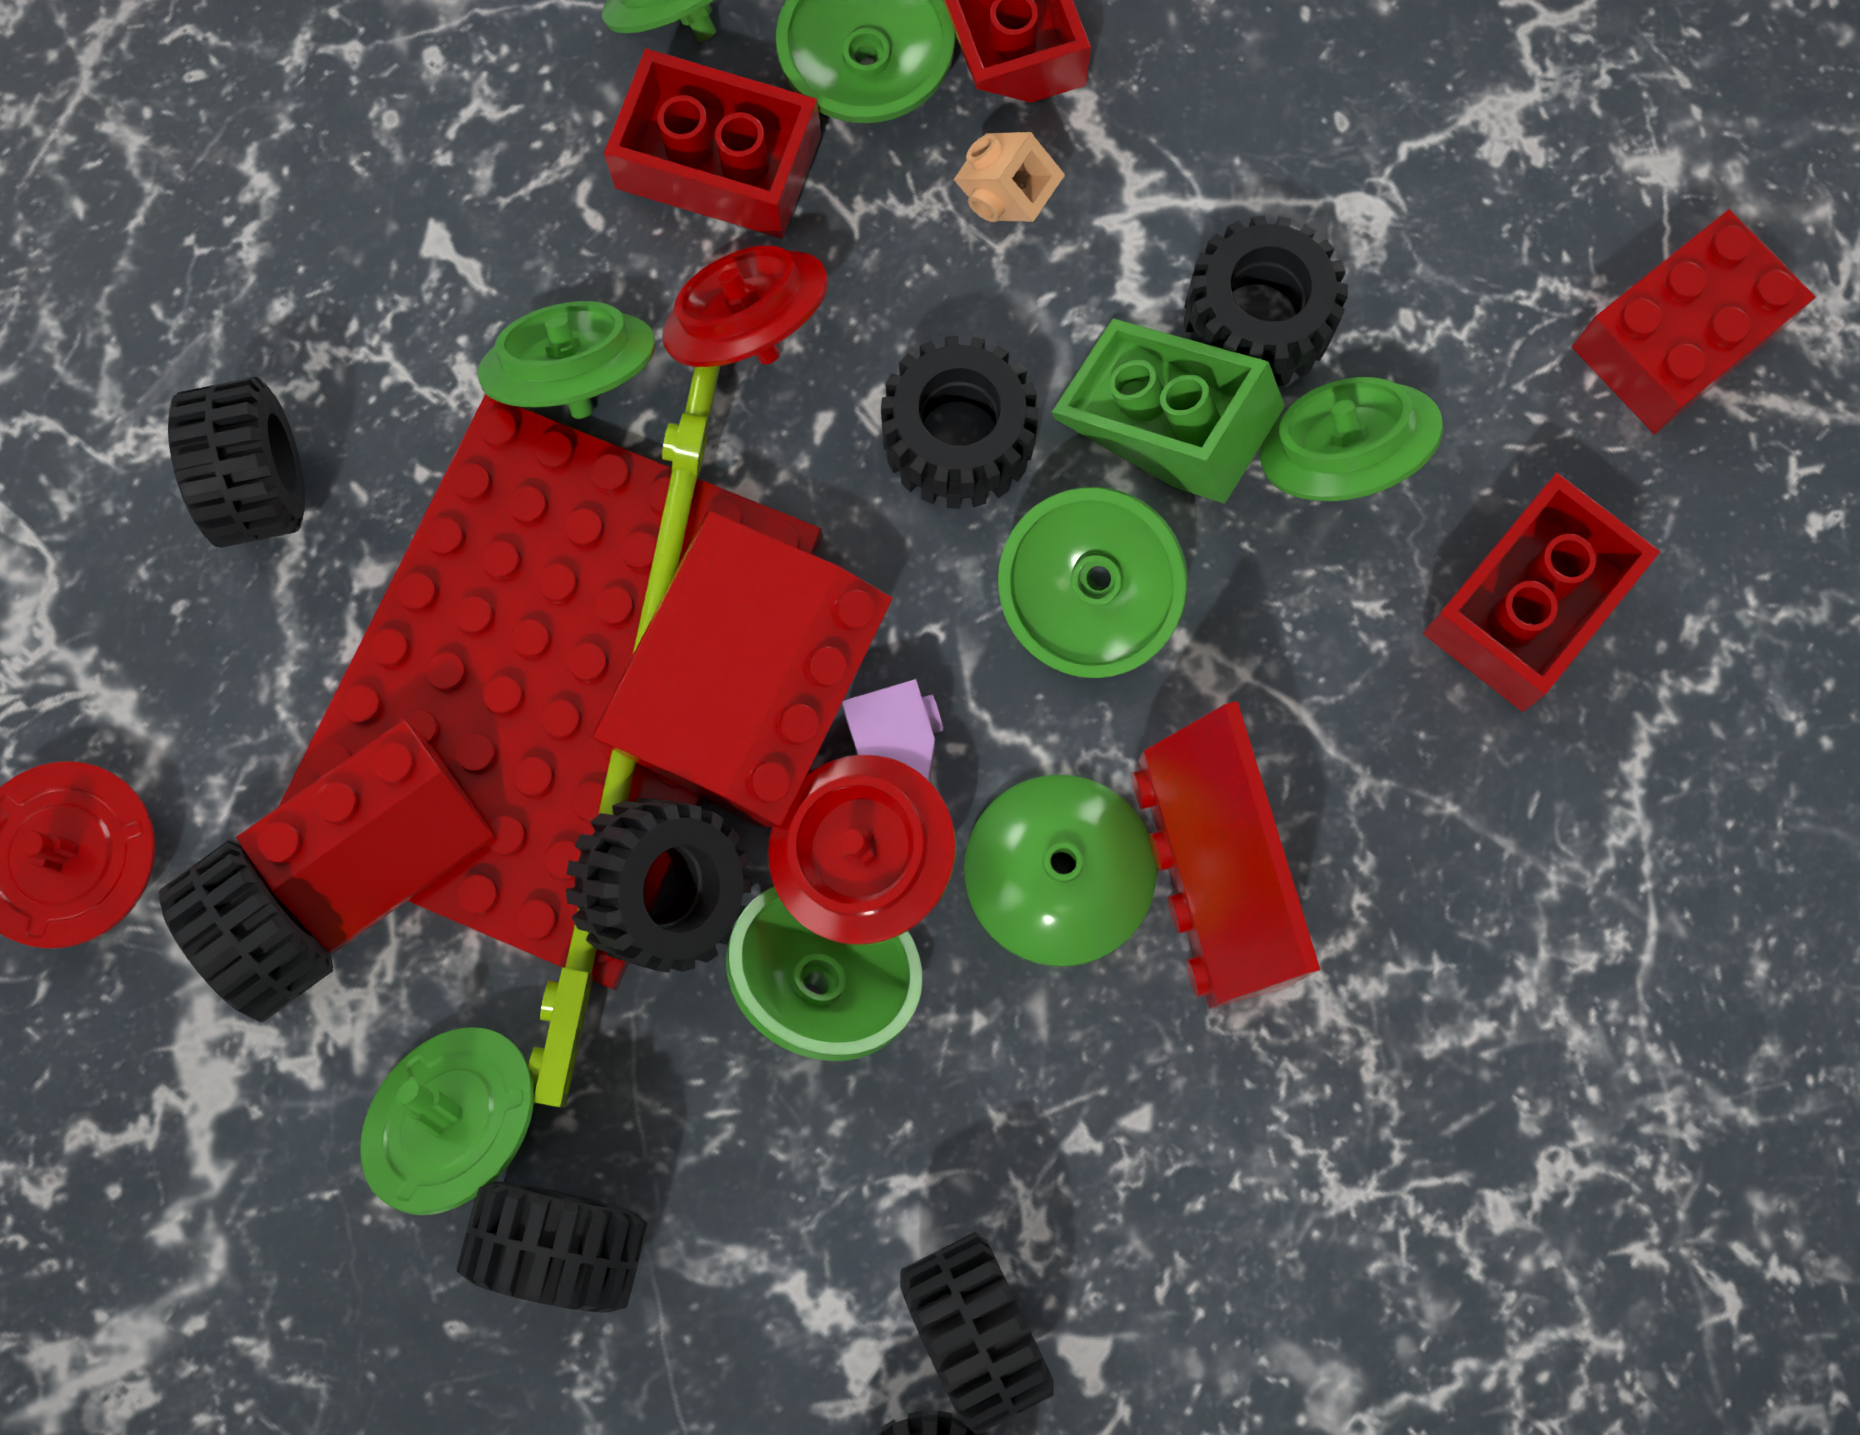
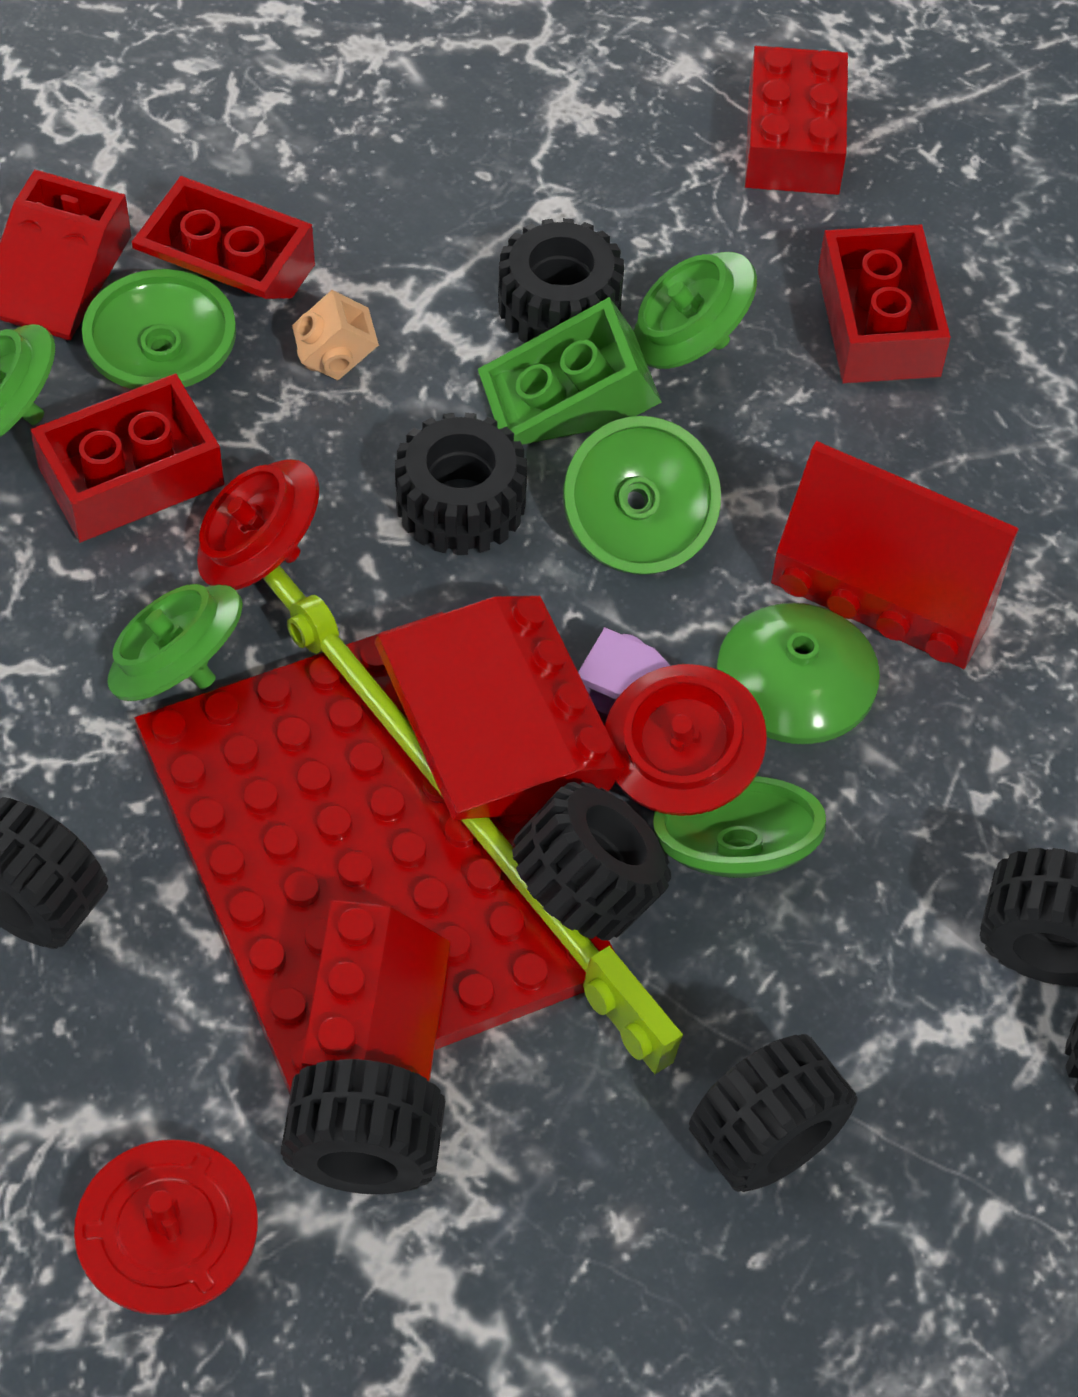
camera: 50 degrees left, 20 degrees down
(447, 1121) = (618, 1121): bright green piece -> none

